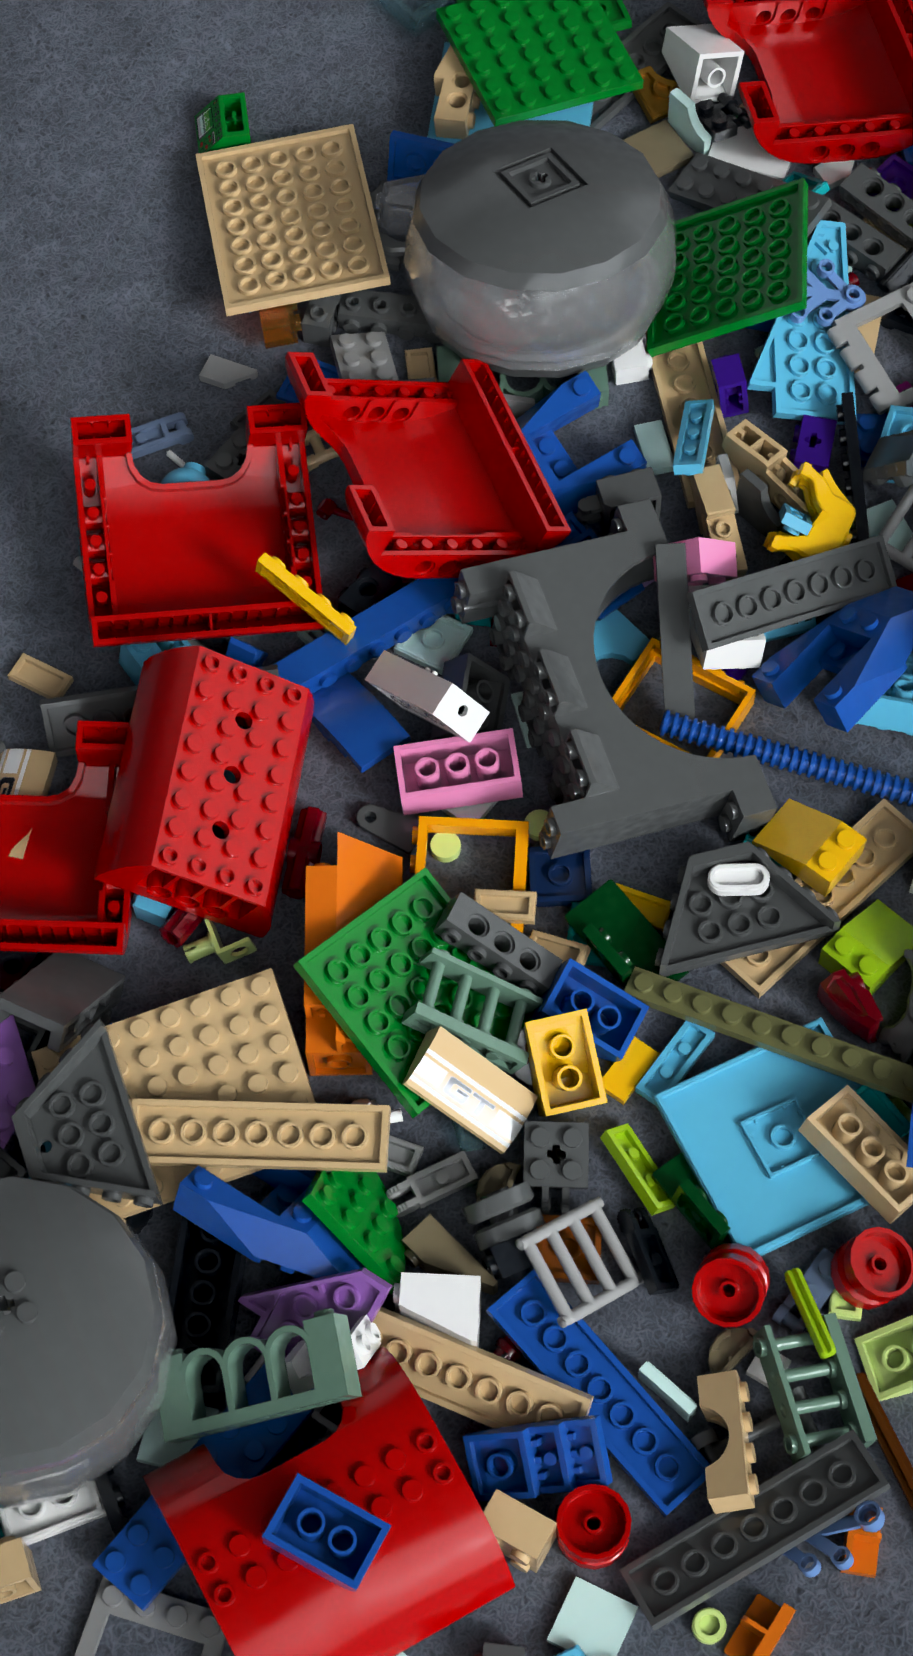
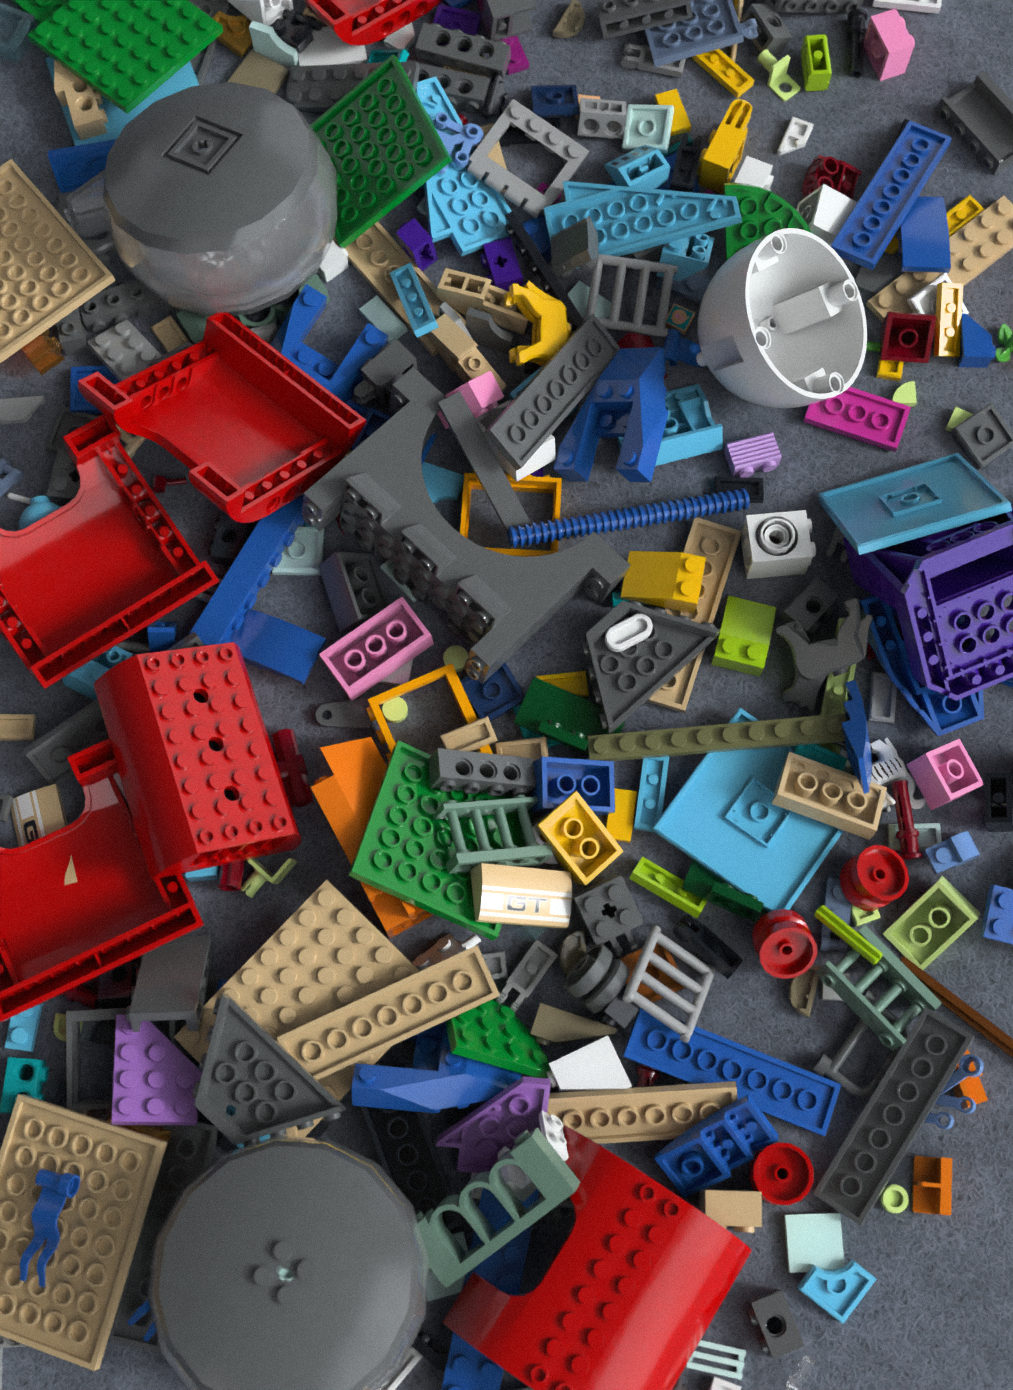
camera: 30 degrees left, 10 degrees up
(313, 604) = (182, 567): yellow plate -> none
(325, 1533) = (619, 1309): blue brick -> none
(427, 695) = (325, 602): white brick -> none
(667, 1391) = (777, 1043): light aqua tile -> none
(730, 1477) = (860, 1089): tan arch -> none
(794, 520) = (525, 332): medium azure plate -> none
(851, 1004) = (757, 687): dark red slope -> none

